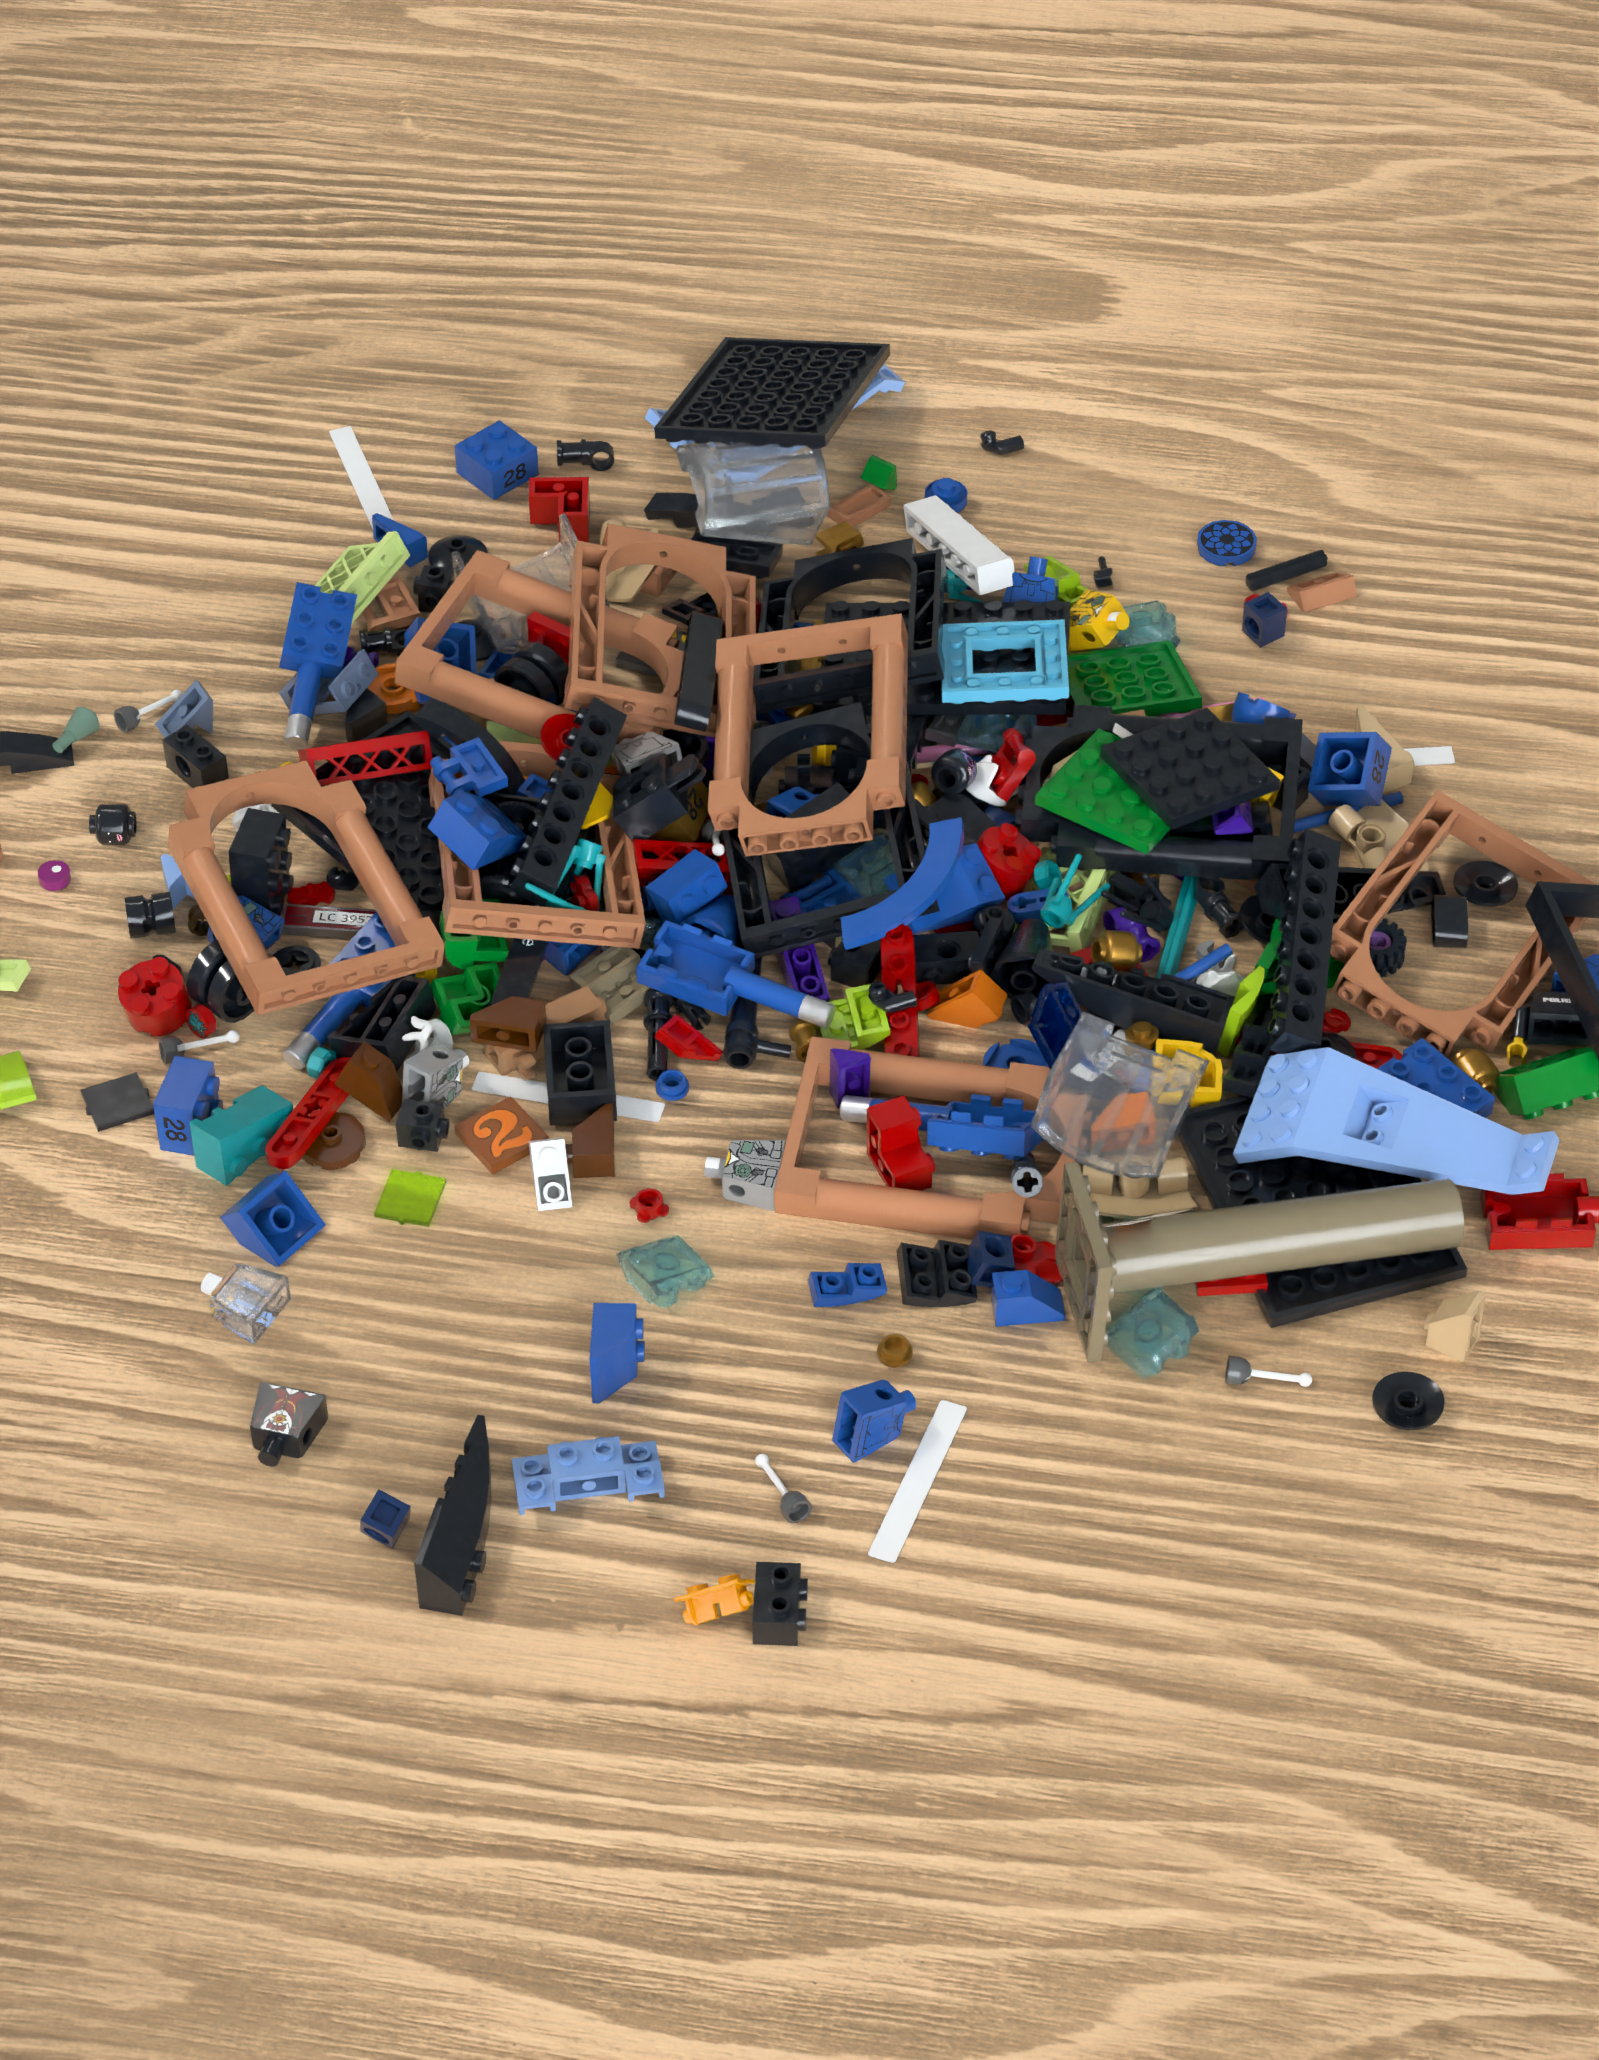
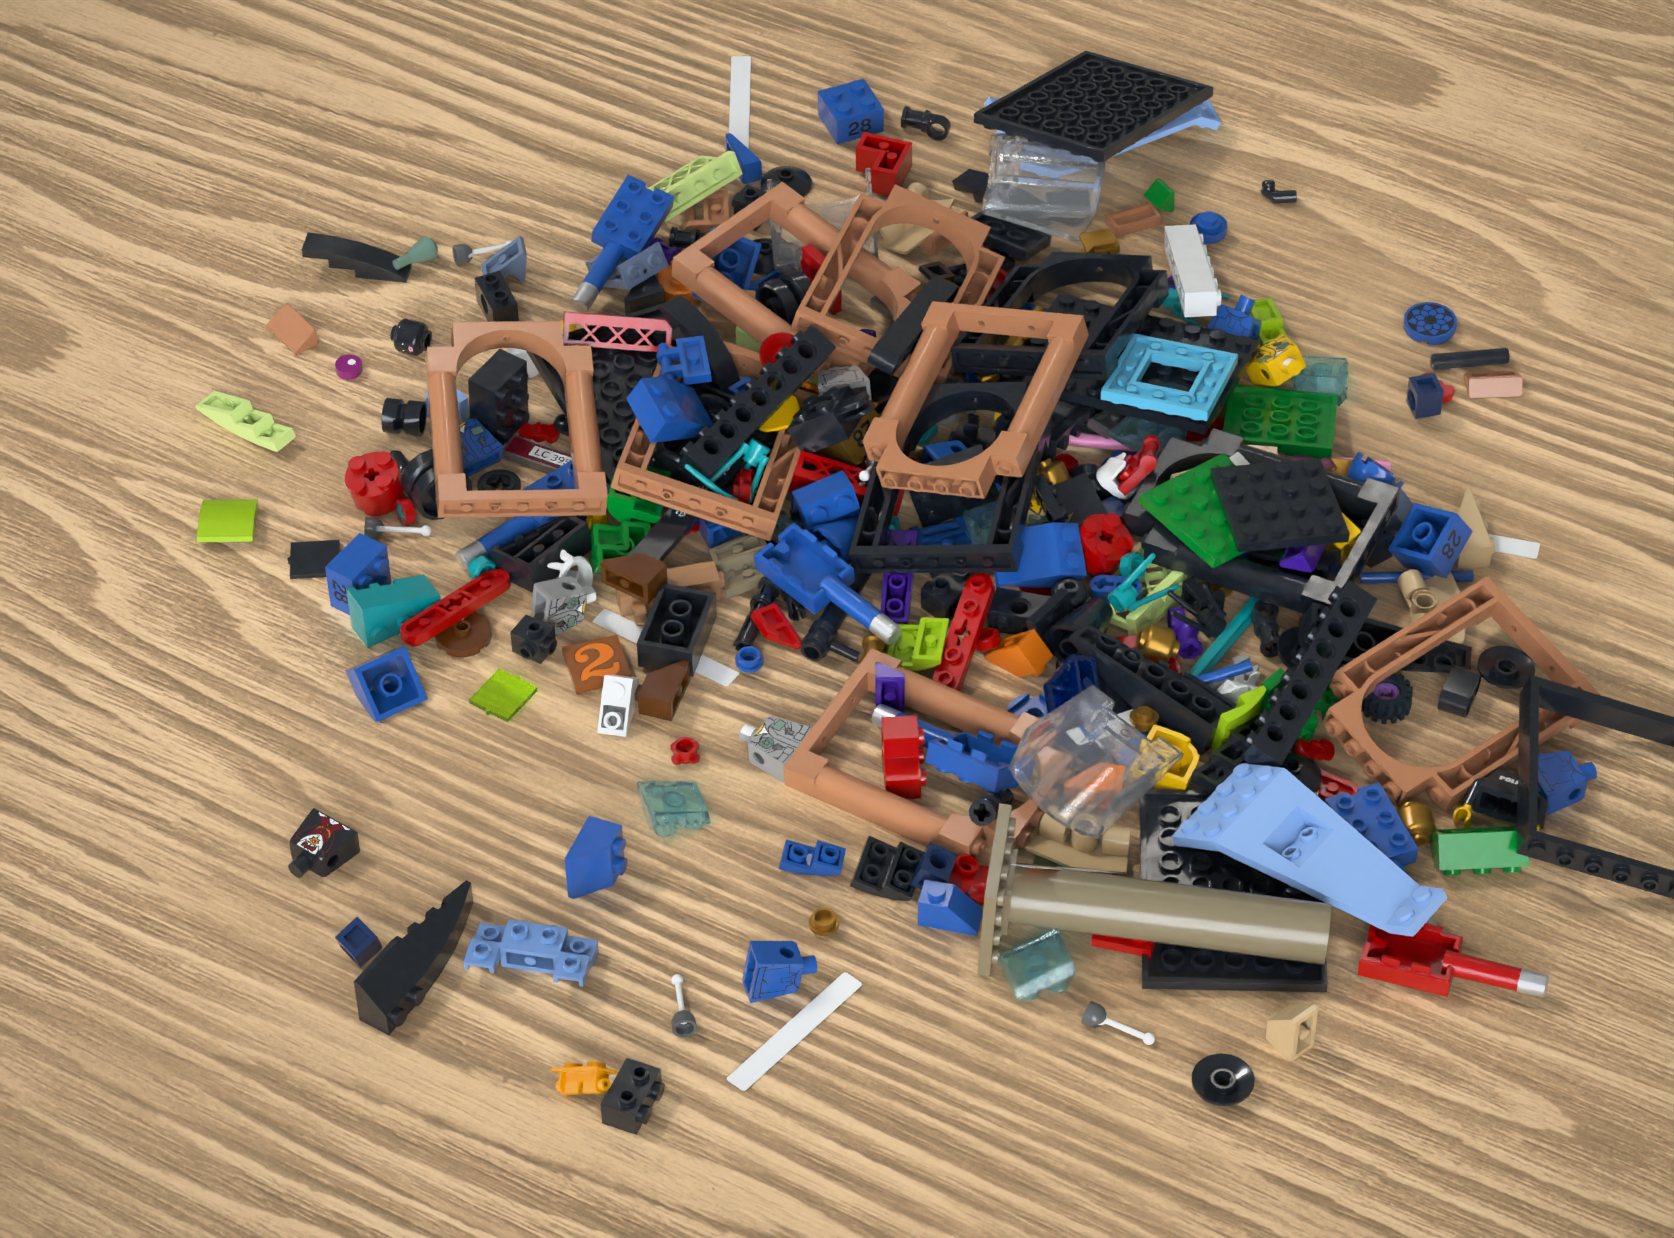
camera: 20 degrees right, 0 degrees up
(247, 1299) = (338, 741): clear torso -> none
(372, 1081) = (509, 592): reddish brown slope -> none
(888, 1000) = (949, 636): black arm -> none
(916, 894) = (996, 552): blue tile -> none
(954, 771) = (1088, 459): black head -> none
(1102, 576) = (1309, 327): black hand -> none

